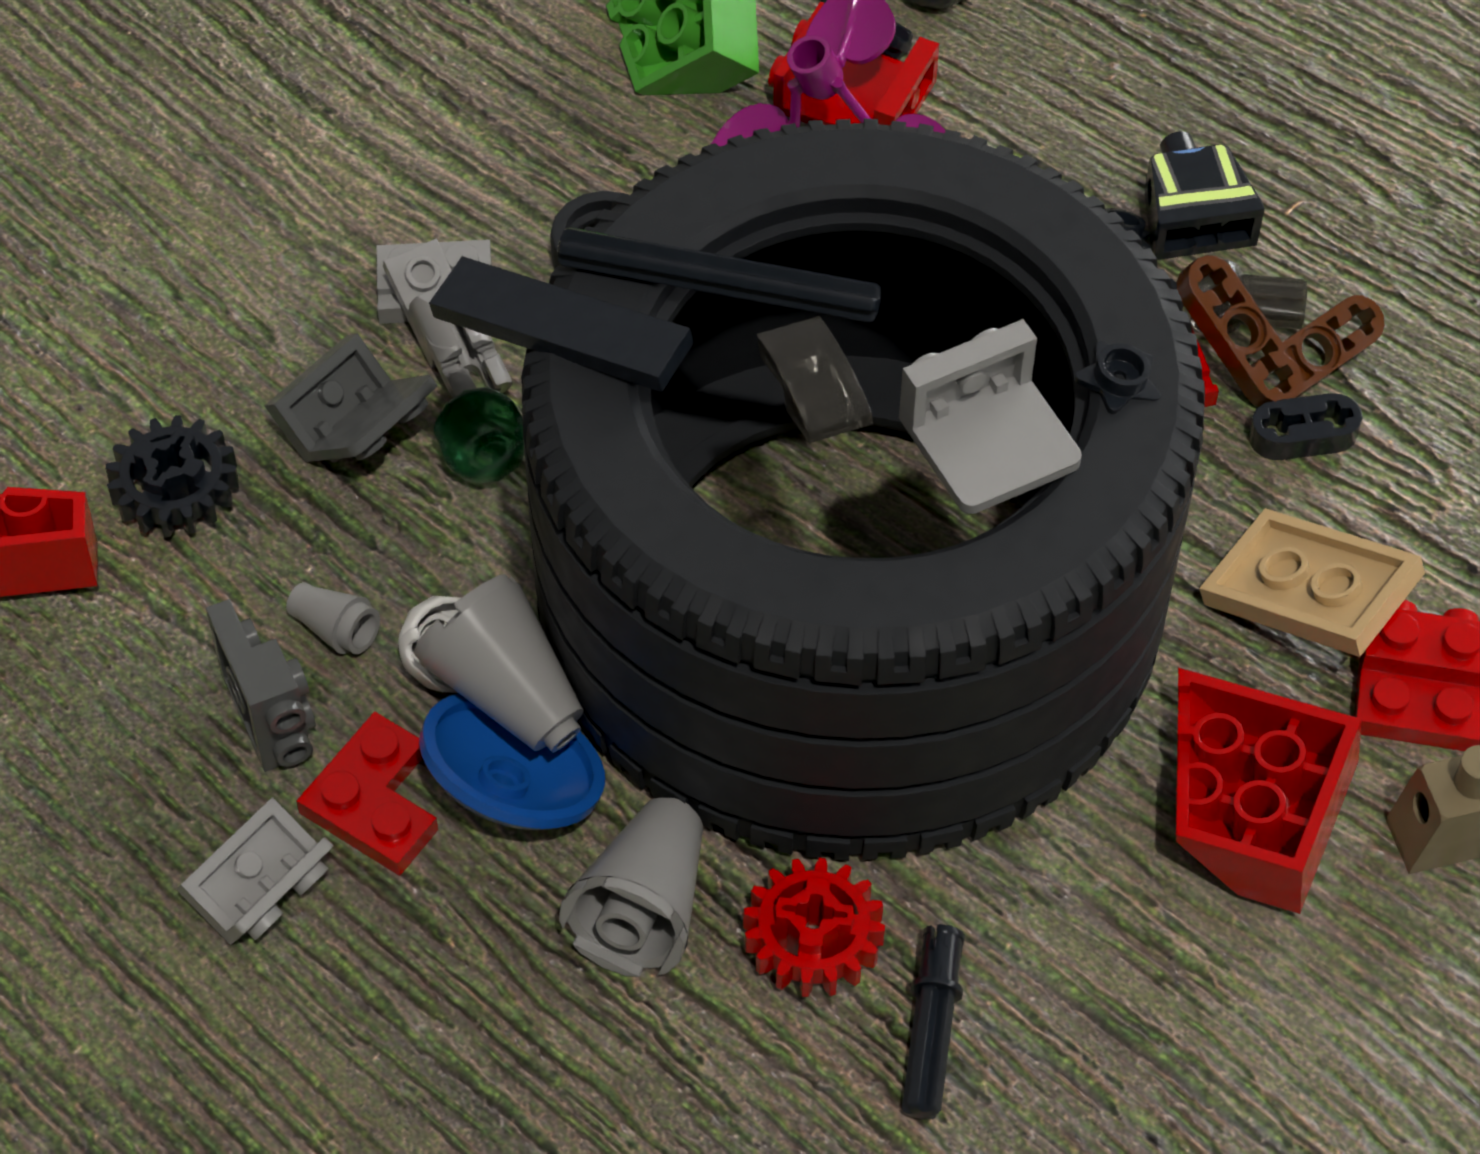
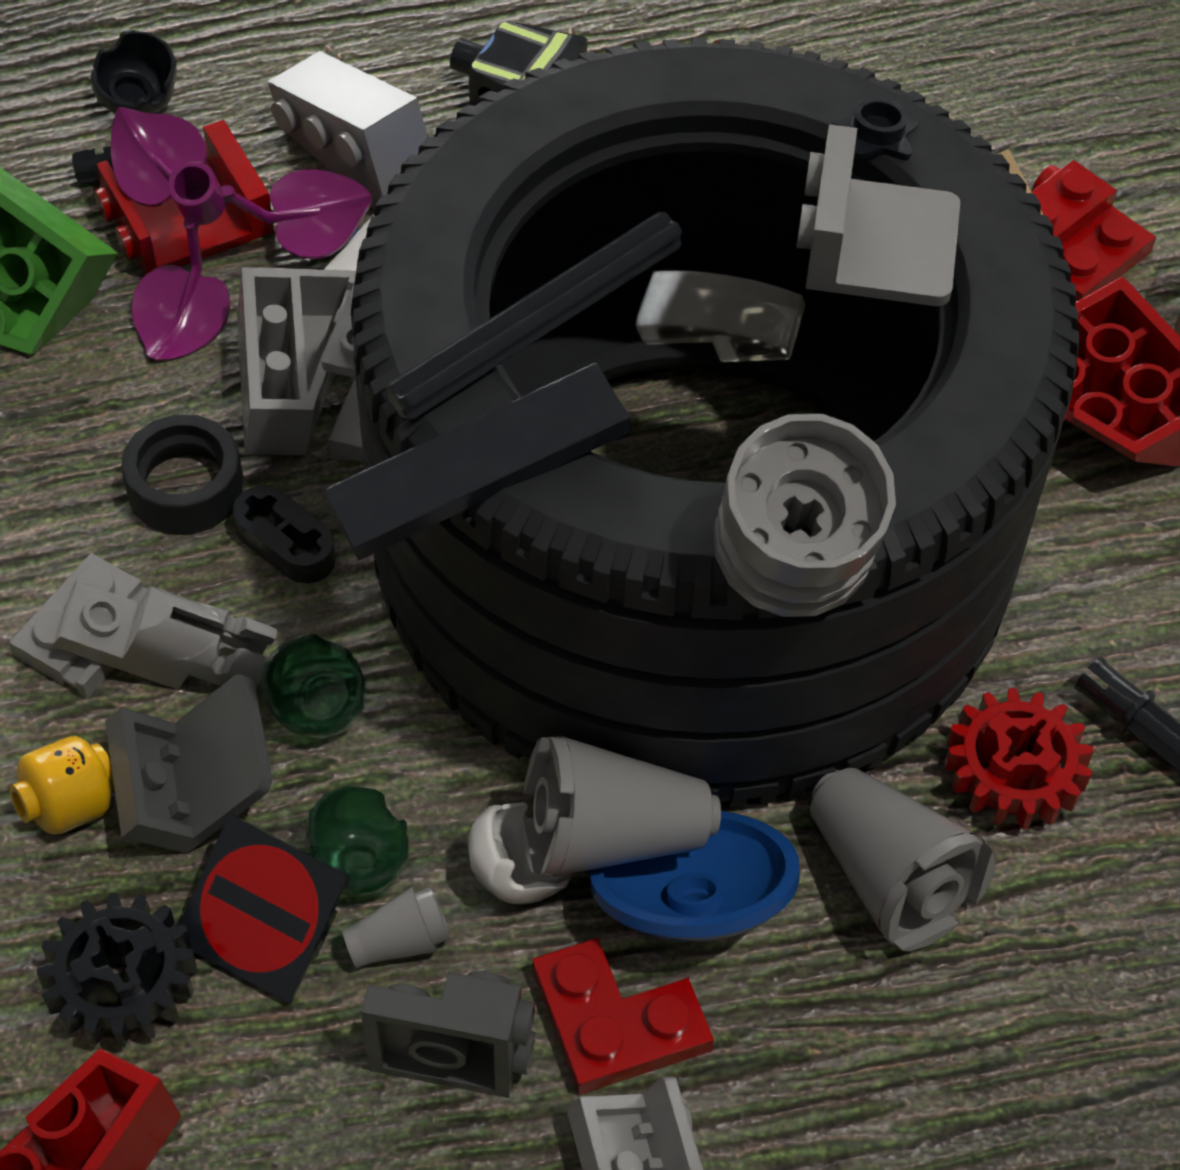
camera: 55 degrees left, 0 degrees up
(280, 525) = (262, 908): none -> piece
(282, 347) = (63, 785): none -> yellow head
(376, 542) = (359, 837): none -> clear green hair
(628, 490) = (809, 476): none -> light grey wheel
(1024, 102) = (348, 120): none -> light grey wedge

